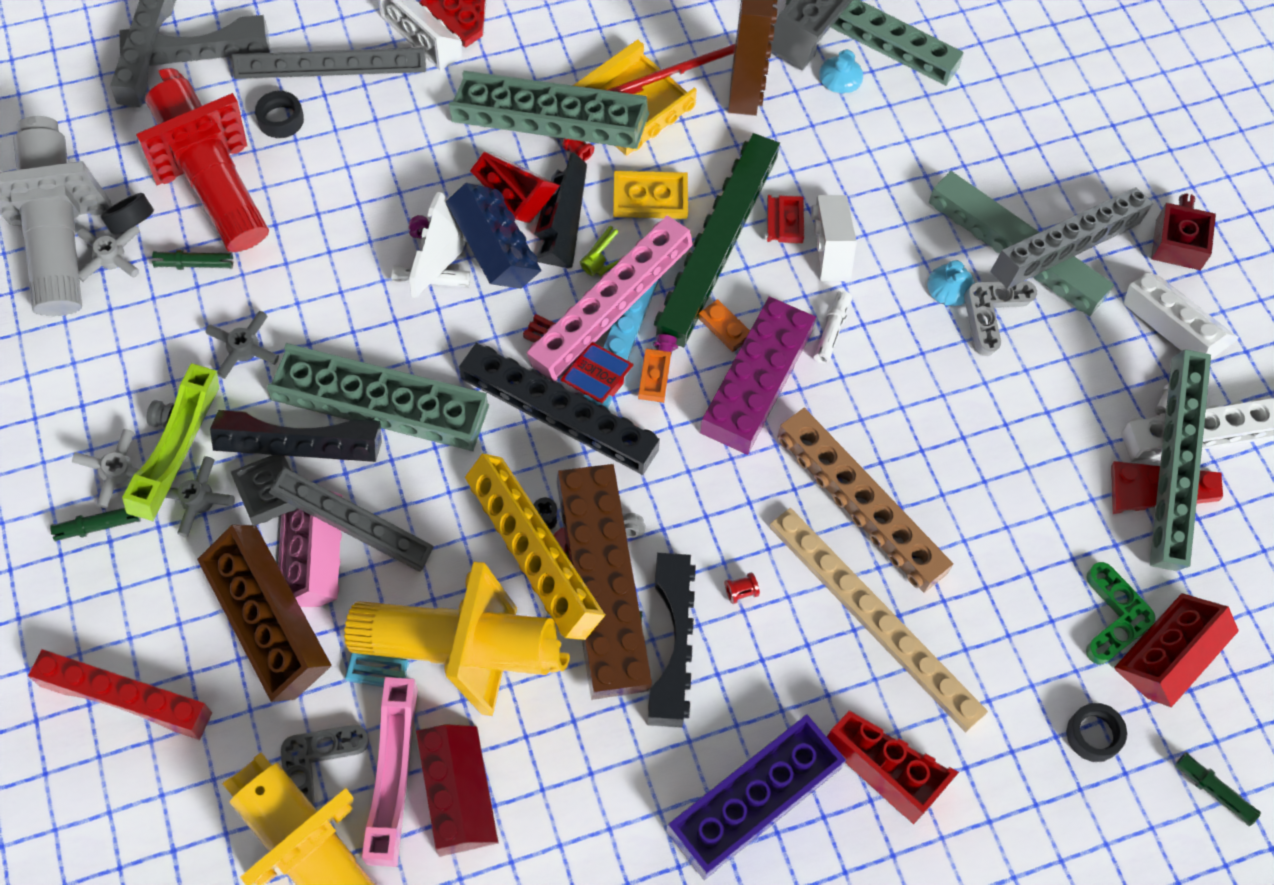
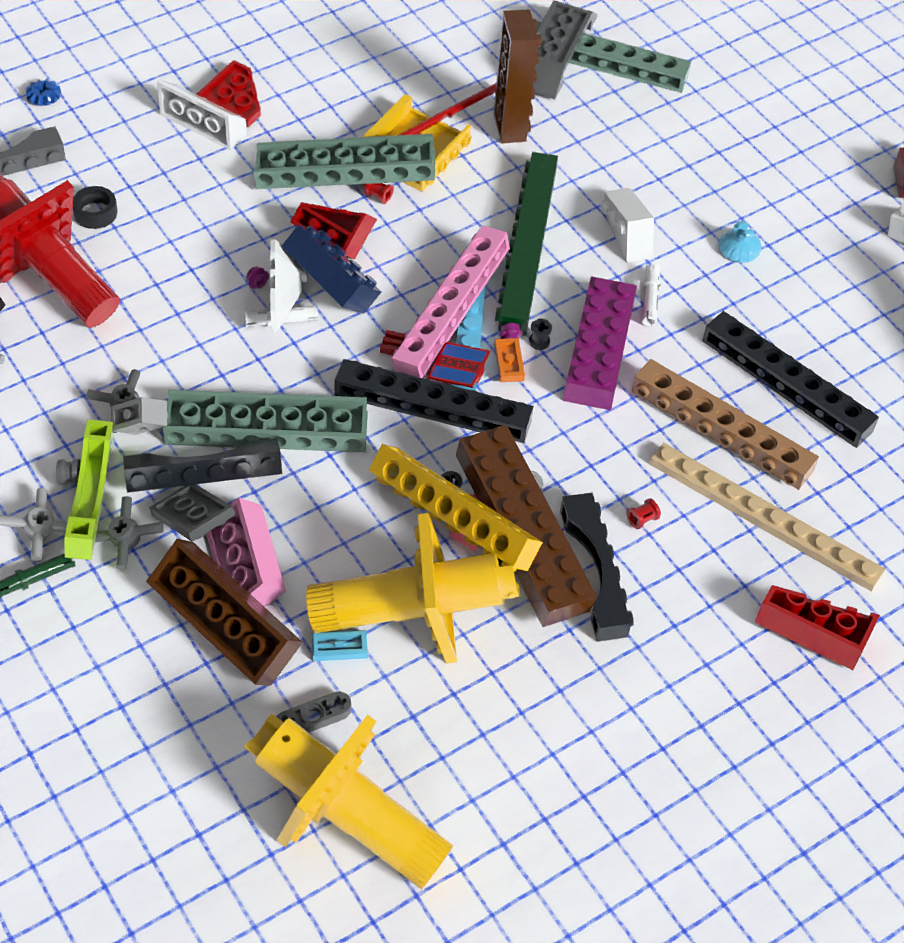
camera: 15 degrees left, 10 degrees down
(141, 699) = (61, 704): red arch -> none
(192, 259) = (52, 340): dark green pin -> none
(245, 368) = (139, 415): none -> light grey brick
(329, 63) = (127, 158): dark grey tile -> none
(351, 519) = (280, 520): dark grey tile -> none
(388, 801) = (378, 698): bright pink arch -> none
(456, 788) = (444, 725): dark red slope -> none
(561, 215) = (382, 248): black wedge -> none
(594, 260) = (424, 276): lime plant -> none
(650, 194) = (455, 217): yellow plate -> none
(697, 350) = (540, 334): none -> black bush
(724, 325) = (556, 310): orange plate -> none
(755, 796) = (712, 673): dark purple brick -> none
(785, 219) = (581, 217): red plate -> none
(841, 73) = (590, 95): medium azure hair -> none
(954, 472) = (790, 379): none -> black brick
(986, 307) = (770, 251): light grey beam -> none
(1002, 229) = (787, 202): sand green brick -> none
(1070, 237) = (831, 186): dark grey brick -> none

